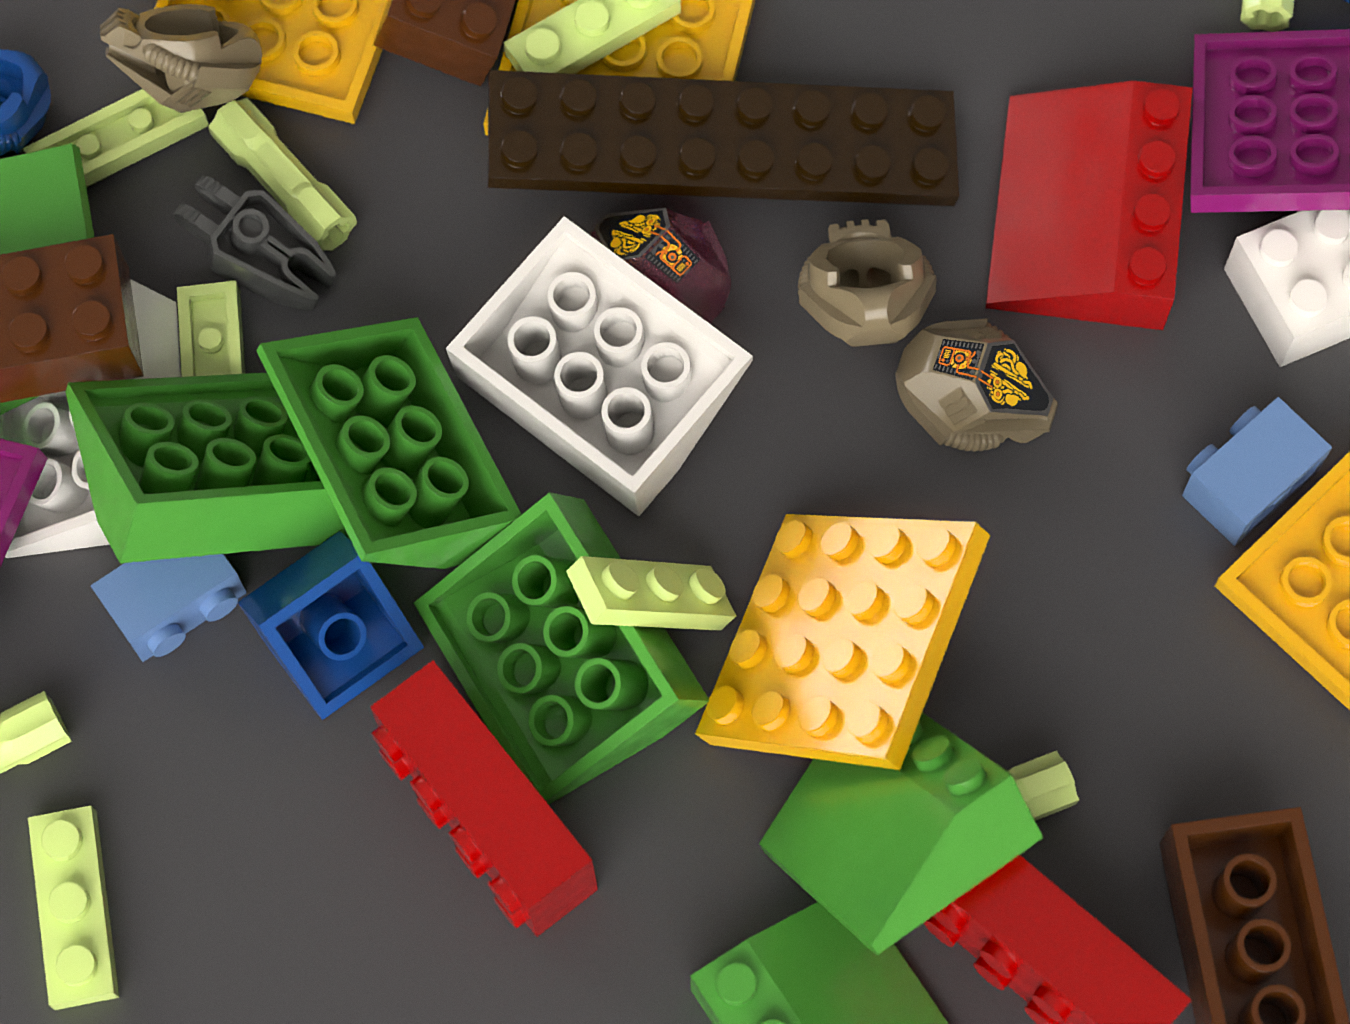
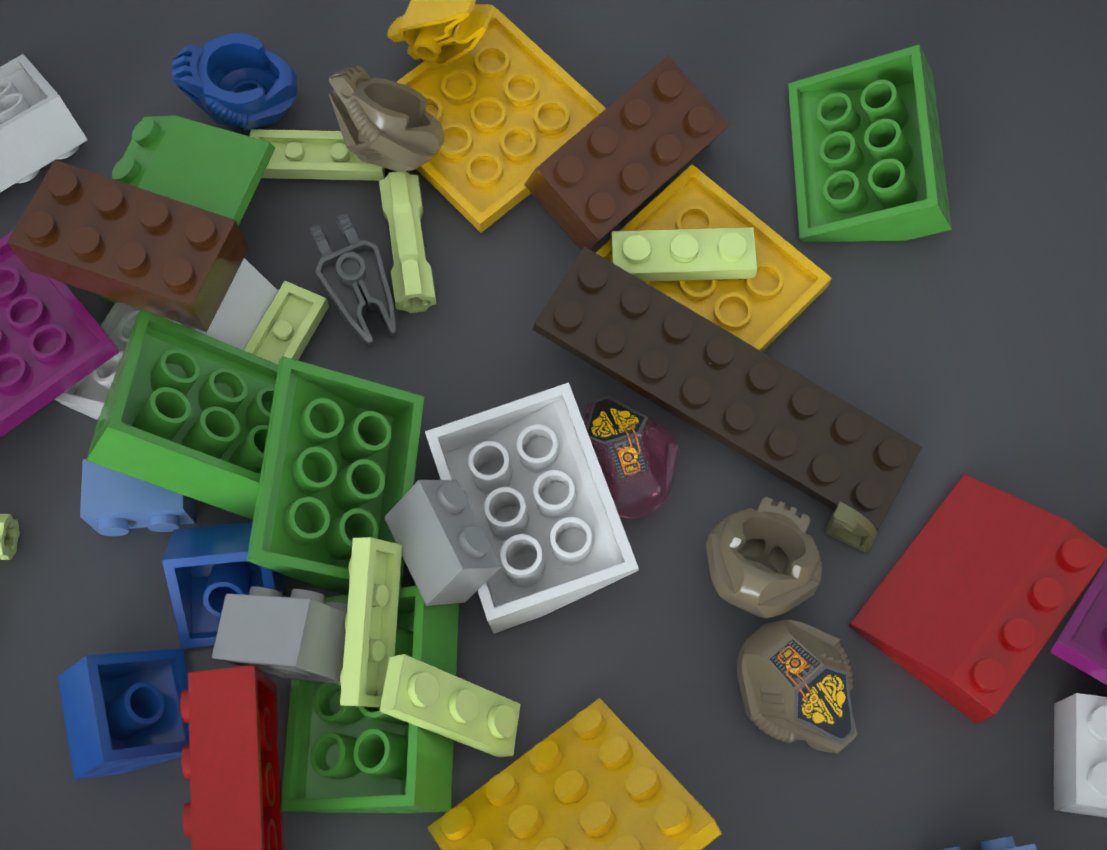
camera: 30 degrees right, 0 degrees up
(312, 806) = (124, 711): none -> blue slope
(454, 613) = (283, 635): none -> light grey brick
(521, 555) = (370, 620): none -> yellowish green plate
(541, 439) = (442, 542): none -> light grey brick
(931, 209) = (851, 528): none -> olive tile

